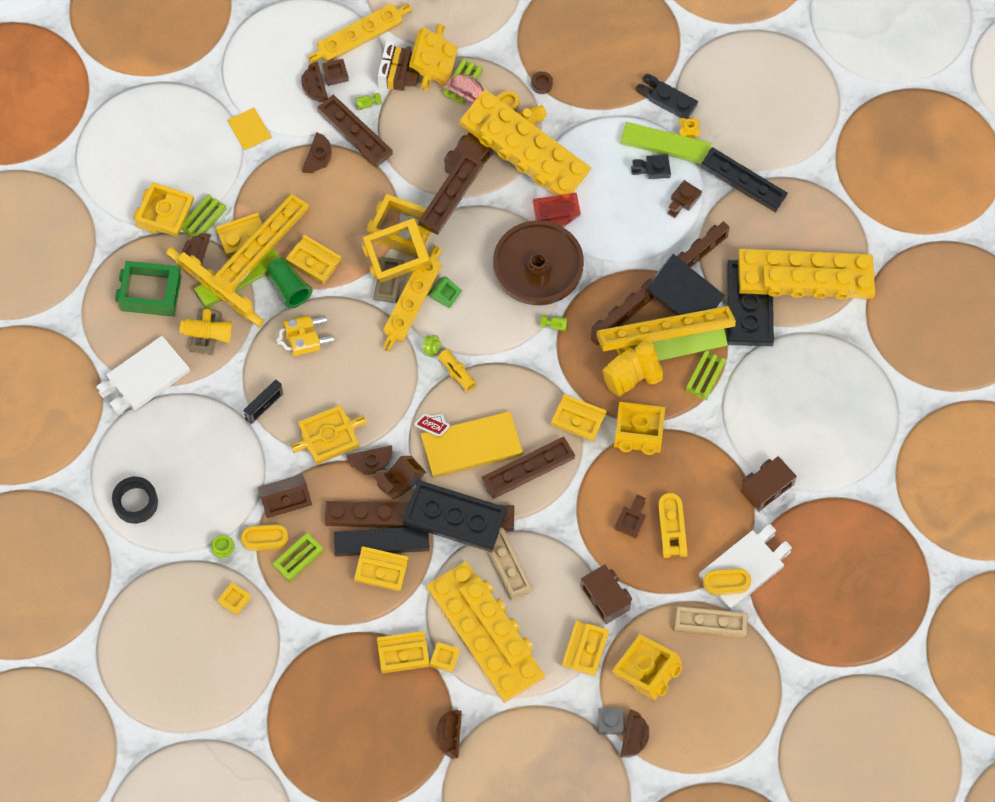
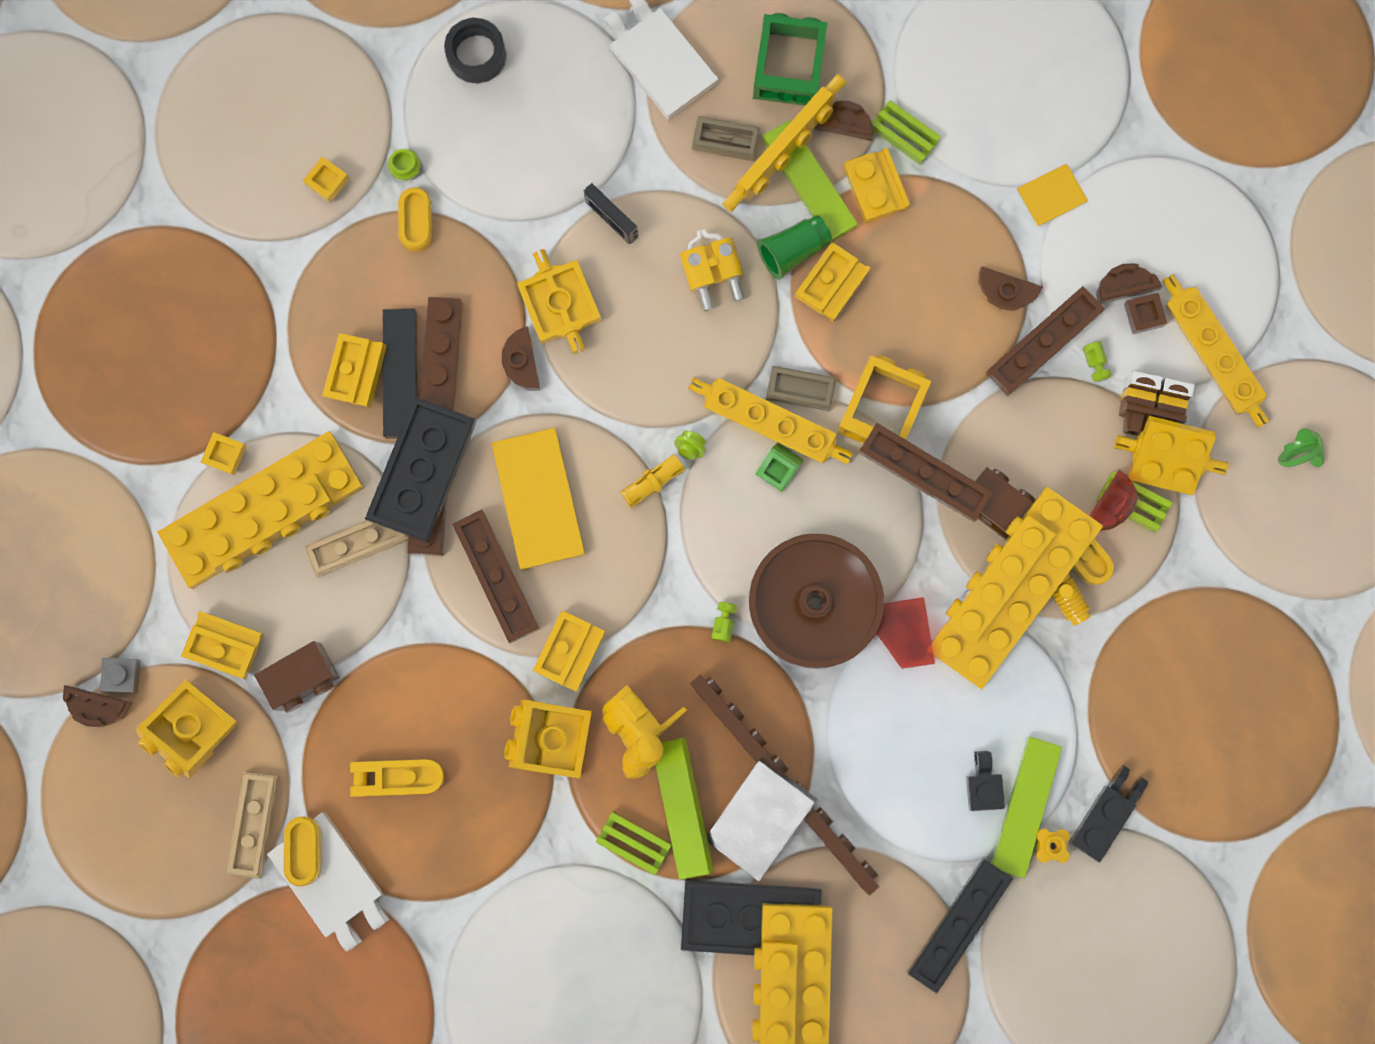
camera: 95 degrees right, 15 degrees up
(163, 210) = (911, 73): yellow plate -> none
(205, 328) = (720, 132): yellow piece -> none
(260, 243) = (853, 205): yellow tile -> none
(284, 496) = (472, 242): reddish brown panel -> none
(292, 550) = (401, 282): lime tile -> none
(399, 477) = (484, 393): reddish brown brick -> none
(403, 652) = (235, 398): yellow plate -> none
(423, 260) = (840, 422): yellow window -> none
(432, 424) = (569, 445): sticker -> none
(449, 733) = (120, 456): reddish brown plate -> none
(542, 82) = (1133, 621): reddish brown tile -> none
(632, 519) = (408, 719): reddish brown plate -> none
(666, 328) = (697, 786): yellow tile -> none
(683, 197) = (931, 830): reddish brown plate -> none
(768, 483) = (452, 923): reddish brown brick -> none

